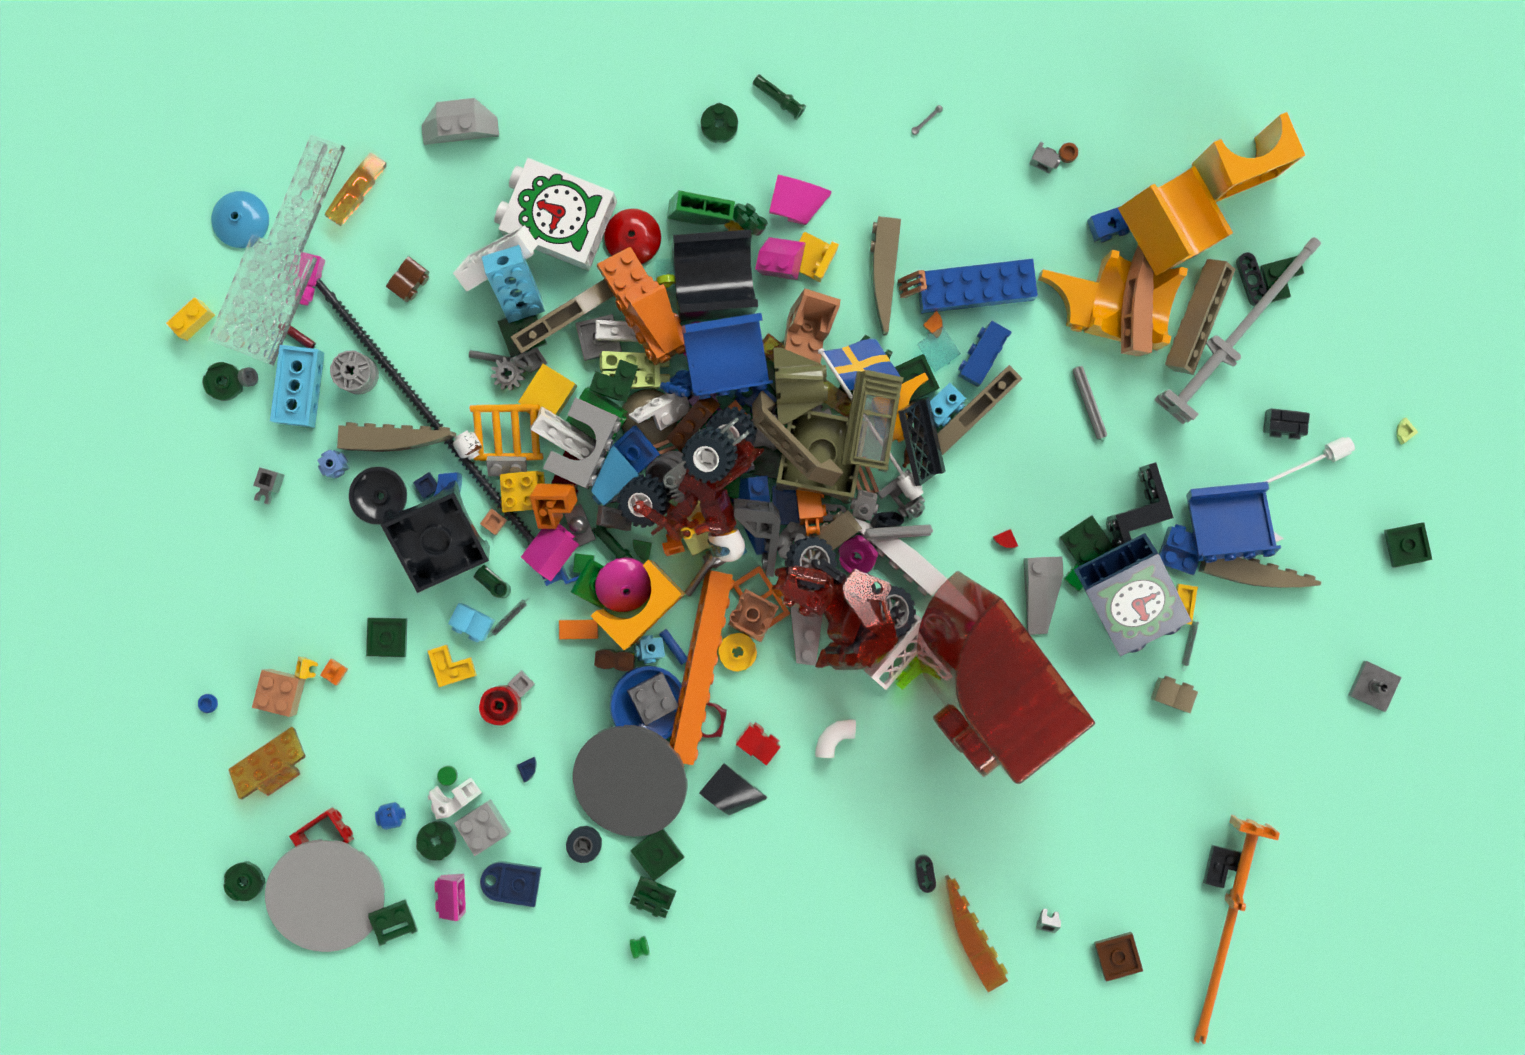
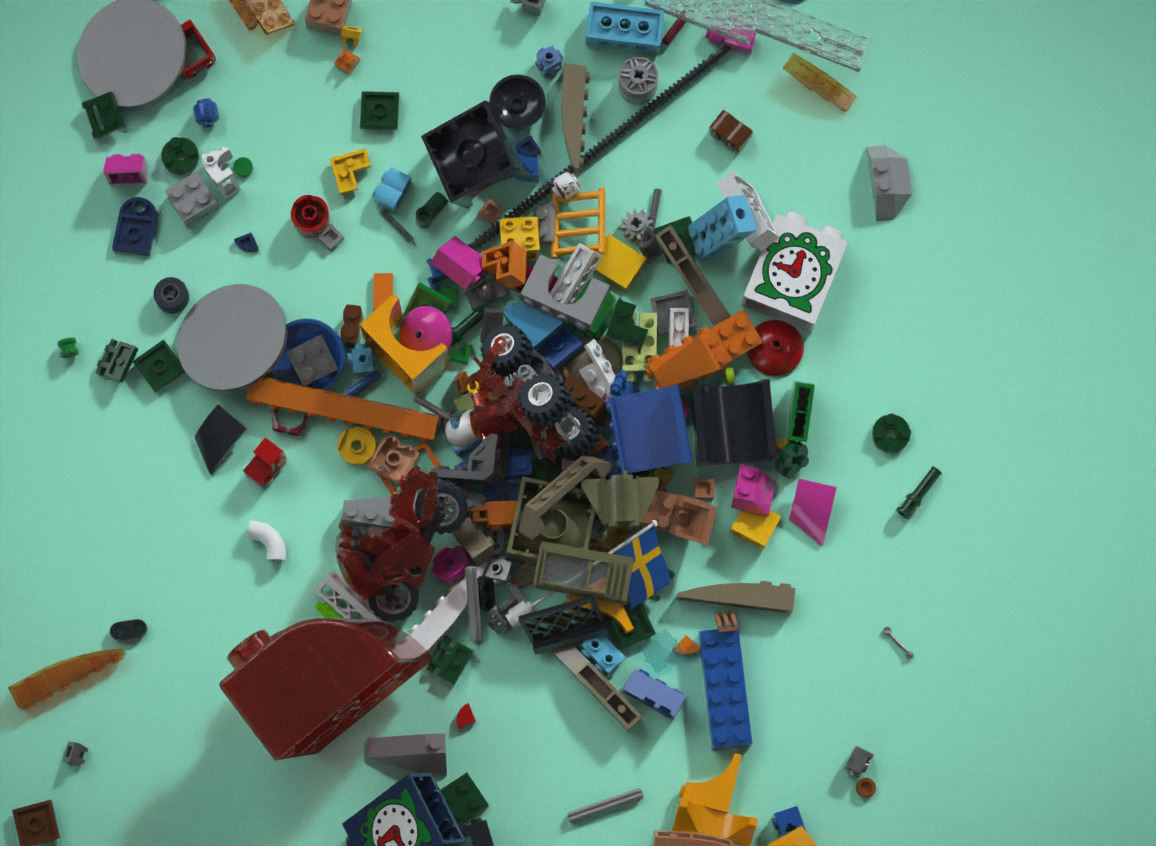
camera: 90 degrees right, 10 degrees down
(776, 306) = (704, 488): none -> nougat tile
(953, 549) = (454, 664): none -> dark green plate

